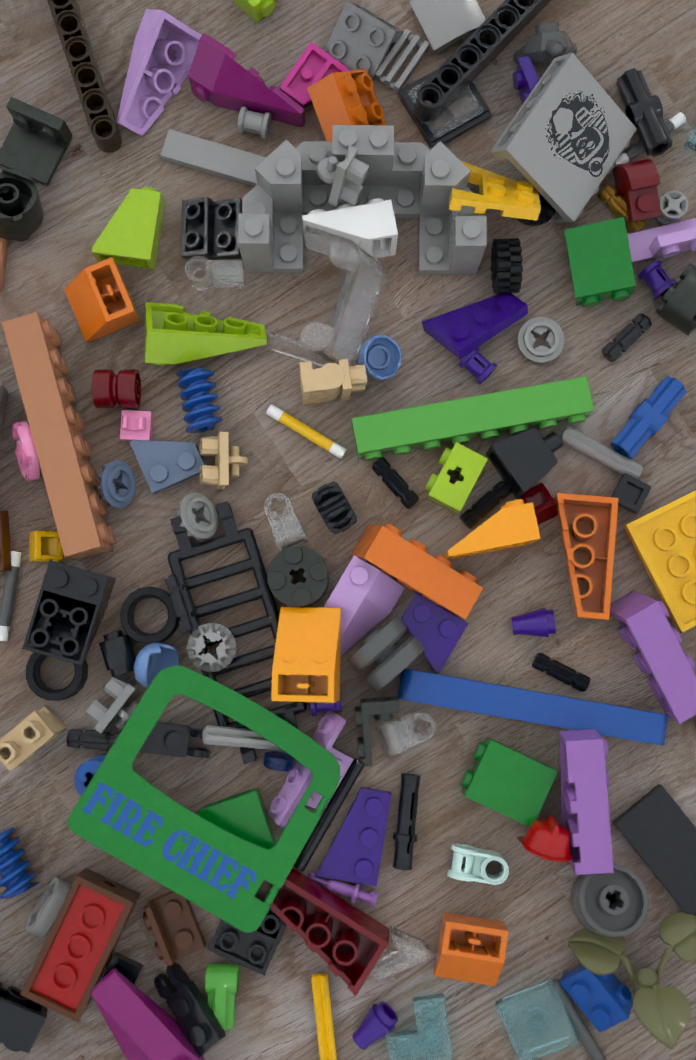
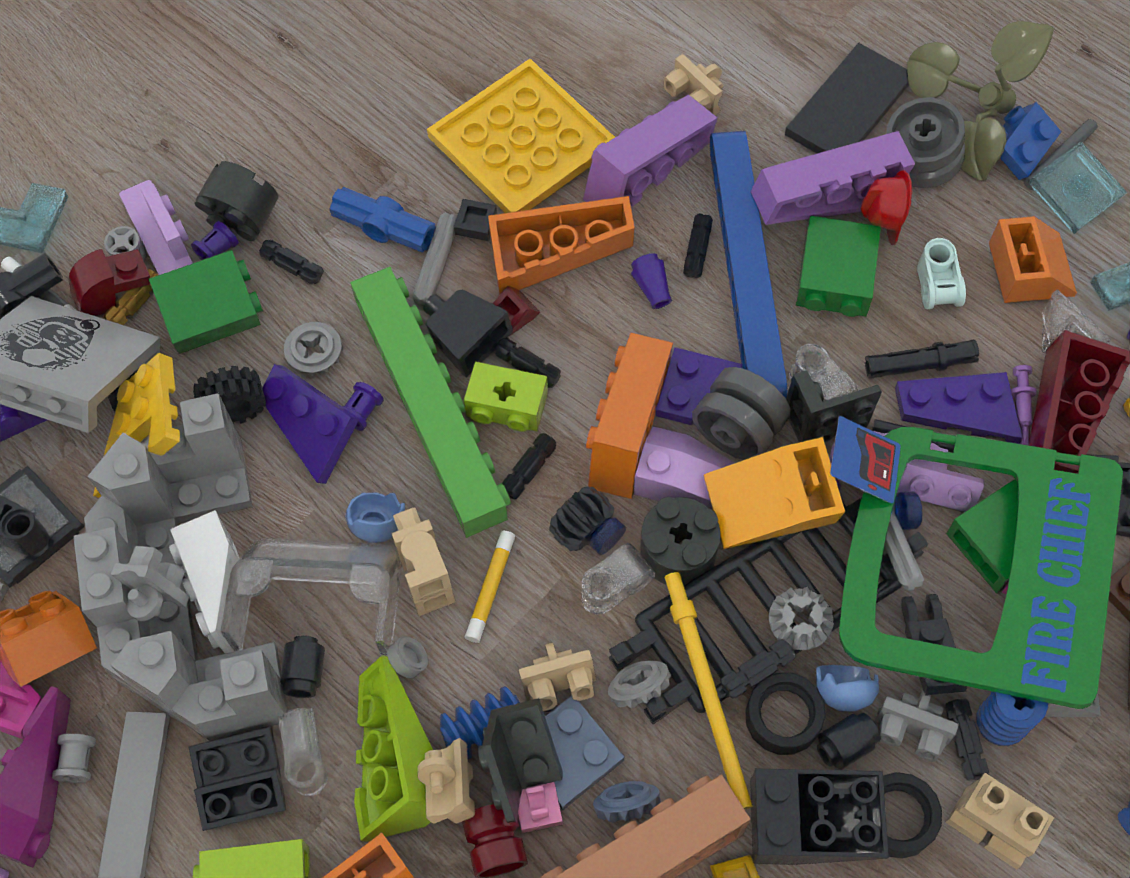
camera: 100 degrees left, 20 degrees down
(155, 360) = (447, 783): none -> tan hips
(168, 412) = (518, 753): none -> pearl dark grey bracket
(237, 562) = (684, 615): none -> yellow bar
(264, 359) = (407, 657): none -> light grey tile
(276, 284) = (302, 667): none -> black brick
(313, 733) = (865, 459): none -> sticker
(319, 525) = (607, 535): none -> clear blue tile
(508, 528) = (561, 333): light orange slope -> none

